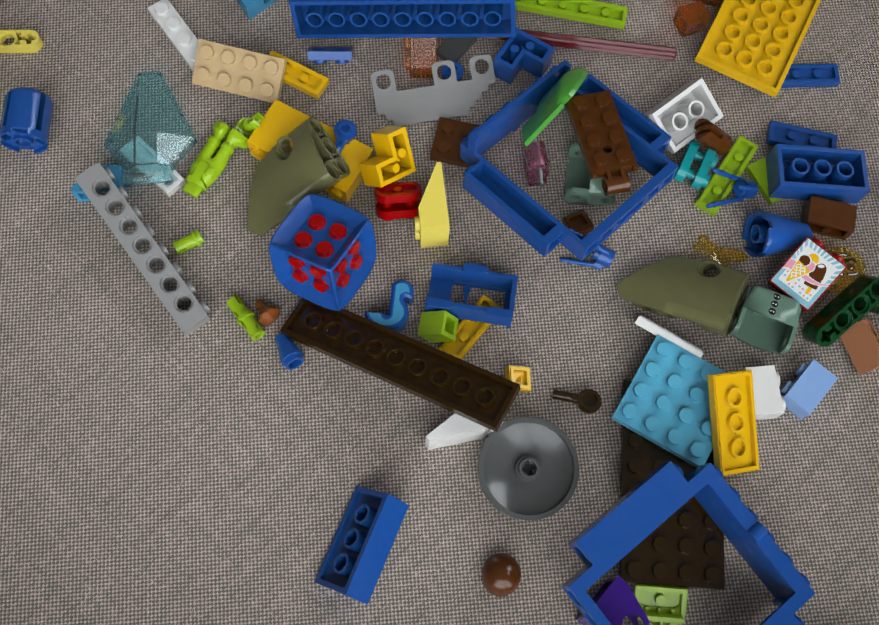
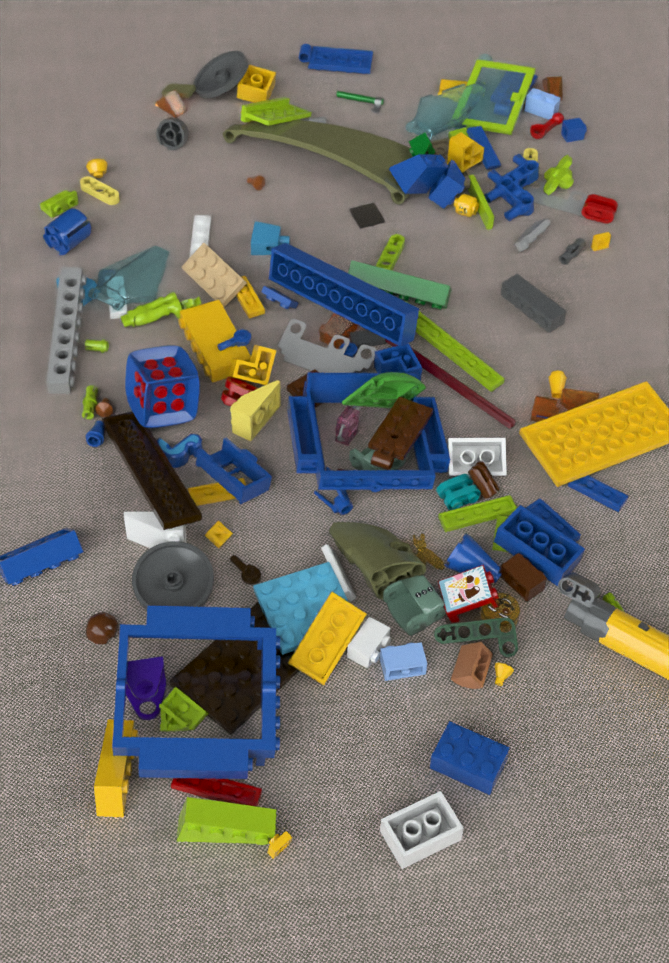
camera: 40 degrees right, 20 degrees down
(293, 173) = (199, 336): olive panel -> none
(438, 326) = (195, 473): lime brick -> none
(742, 189) = (478, 522): blue plant -> none

